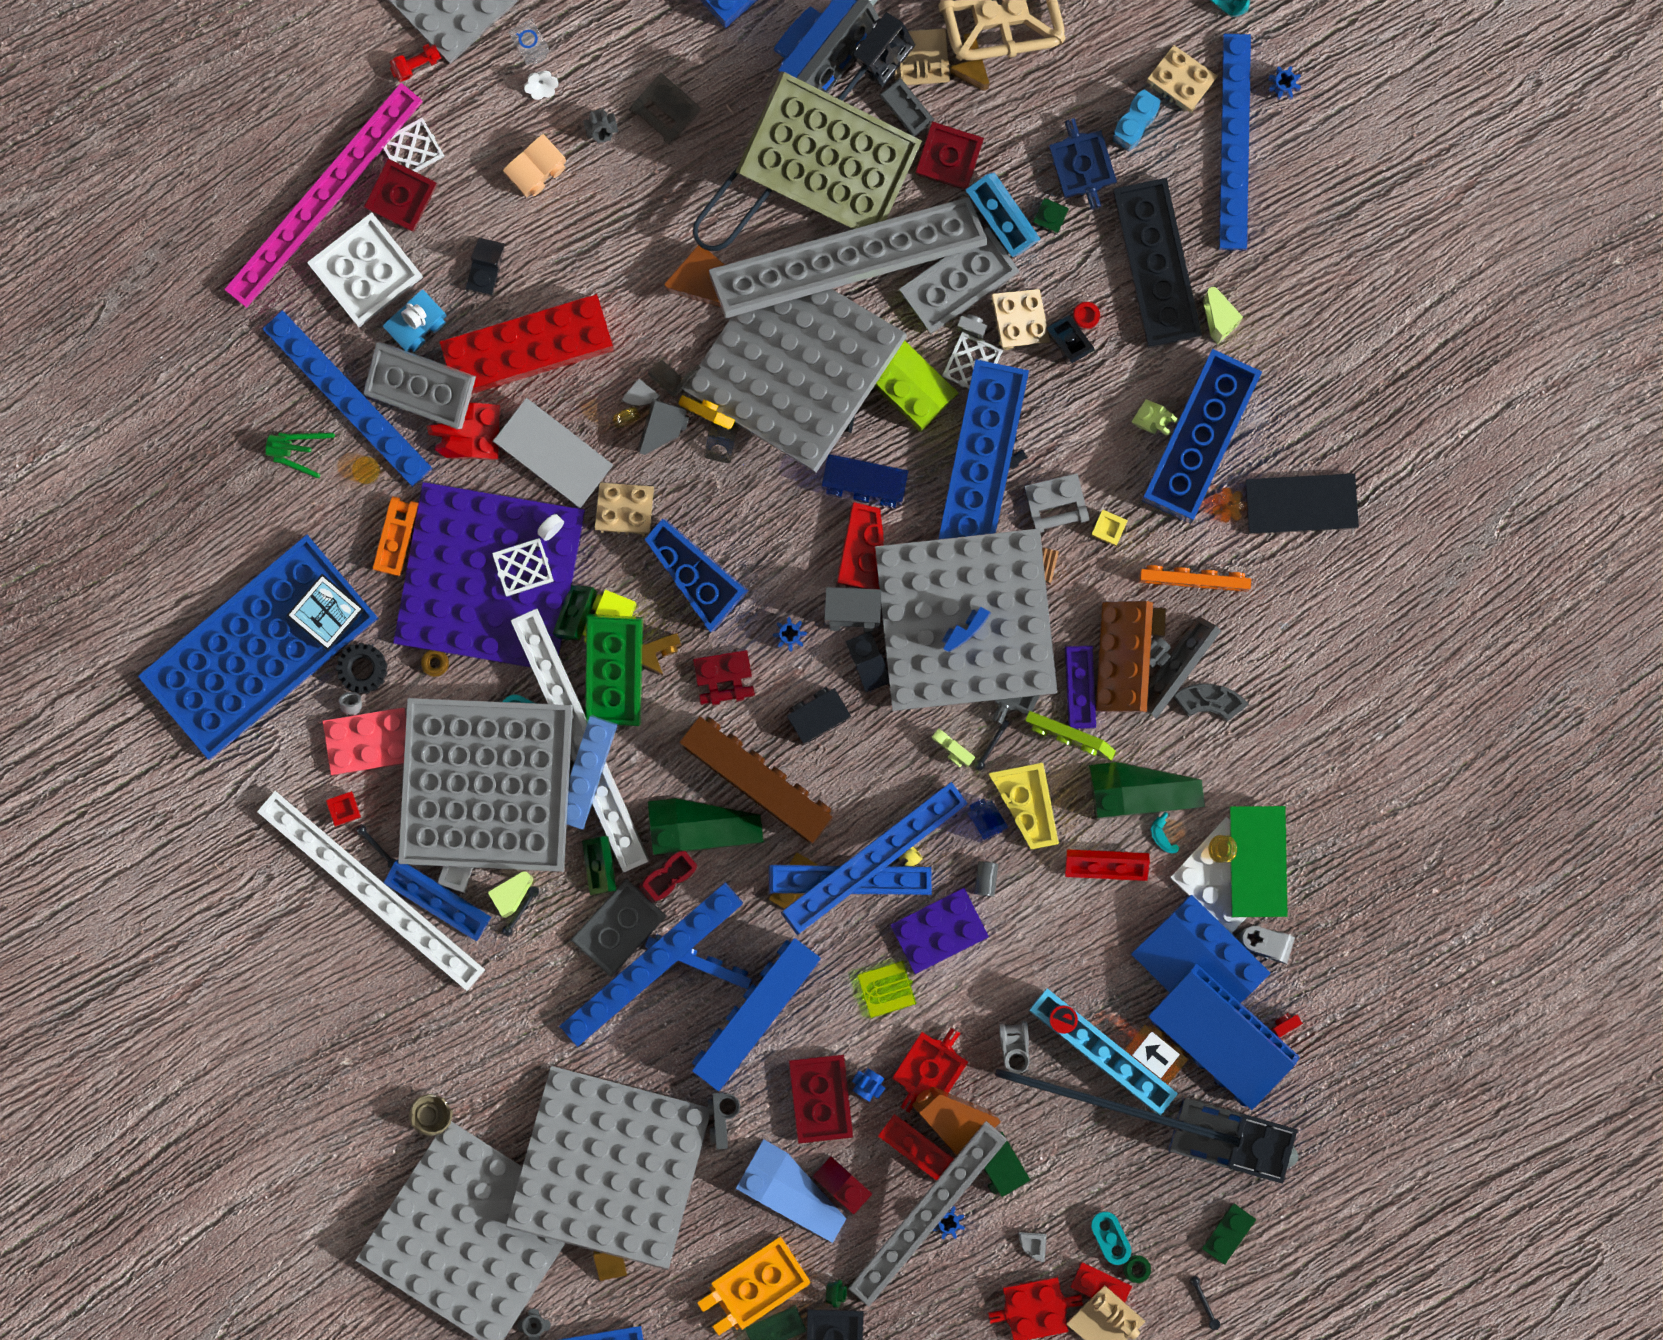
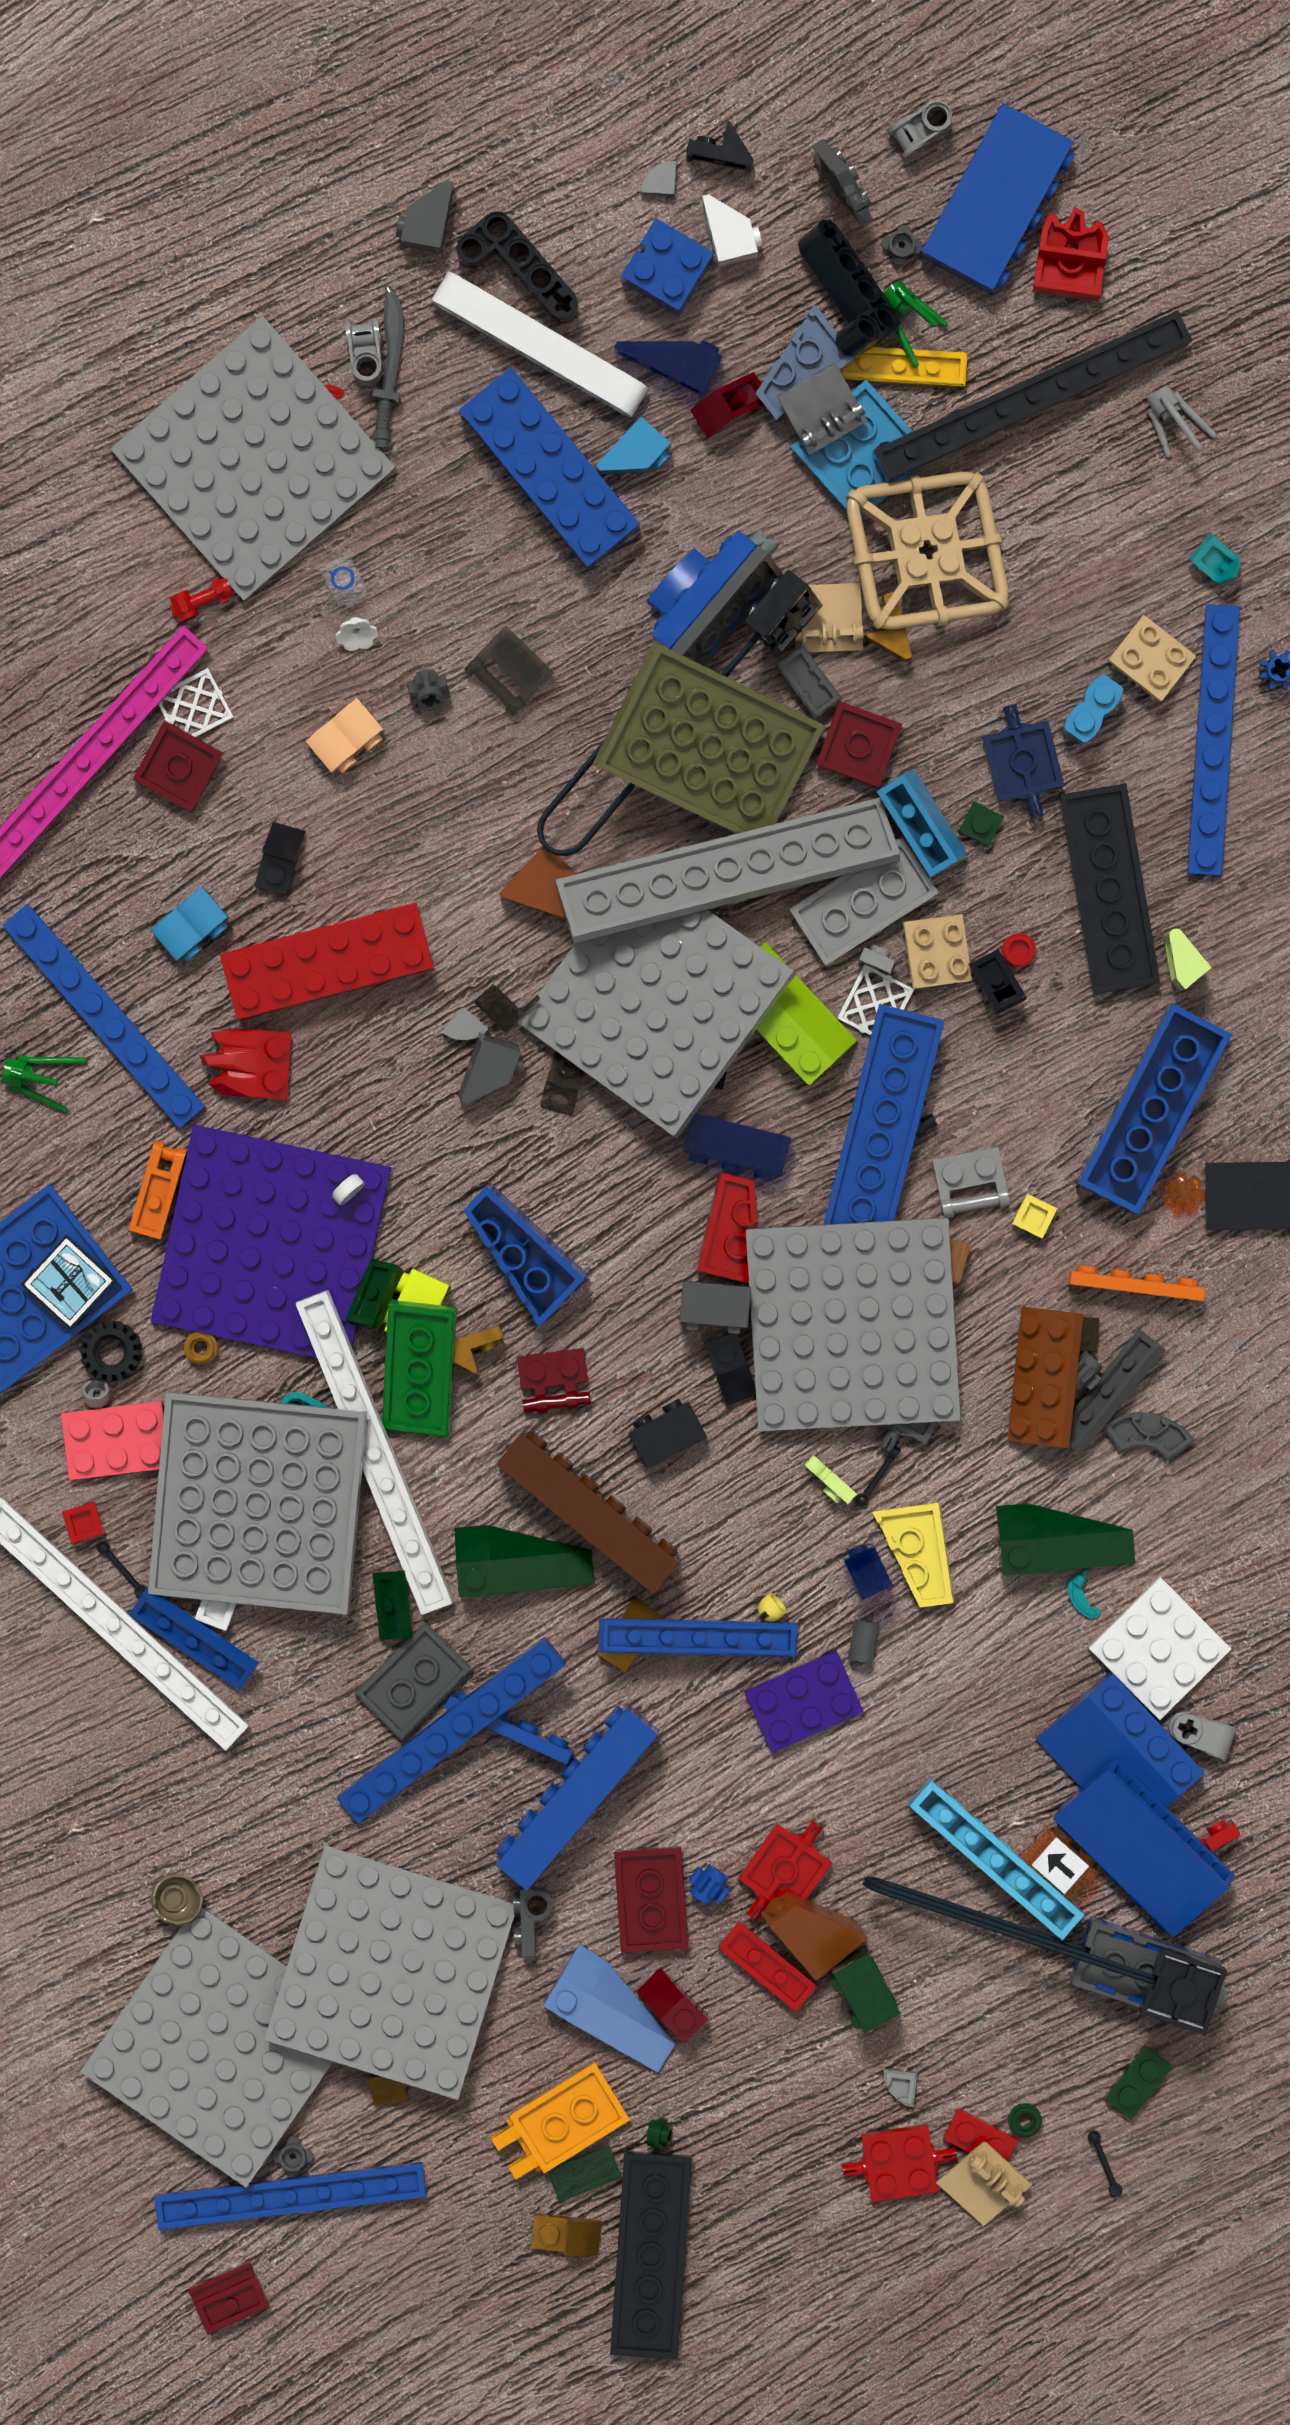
camera: 10 degrees right, 5 degrees up
(365, 269) = (131, 857): white plate -> none
(366, 470) = (124, 1106): clear yellow tile -> none
(414, 315) = (189, 921): white plate -> none
(419, 385) = (193, 1006): light grey tile -> none
(511, 893) = (280, 1639): yellowish green tile -> none
(533, 892) = (310, 1633): black hinge -> none
(544, 560) = (286, 1243): white window -> none
(553, 453) = (354, 1095): light grey tile -> none
(588, 769) = (383, 1489): medium blue plate -> none
(624, 508) = (439, 1167): tan hinge -> none
(626, 417) = (446, 1054): clear yellow tile -> none
(663, 881) = (468, 1630): dark red brick -> none
(706, 410) = (545, 1053): yellow plate -> none
(796, 639) = (629, 1339): blue gear -> none
(873, 858) = (727, 1613): blue plate -> none
(886, 989) = (736, 1768): clear neon green piece -> none
(927, 1213) = (774, 2046): light grey tile -> none
(951, 1229) = (803, 2063): blue gear -> none
(956, 637) = (843, 1348): blue slope -> none
(1014, 1044) = (889, 1845): light grey piece -> none
(1063, 1019) = (949, 1820): red tile -> none
(1069, 736) = (971, 1472): lime wing -> none
(1080, 687) = (989, 1410): dark purple tile -> none
(1107, 865) = (1012, 1630): red plate -> none
(1111, 1237) = (994, 2081): teal plate -> none
(1153, 418) = (1095, 1083): yellowish green plate -> none
(1222, 848) = (1153, 1619): clear yellow tile -> none
(1260, 861) = (1196, 1635): green tile -> none

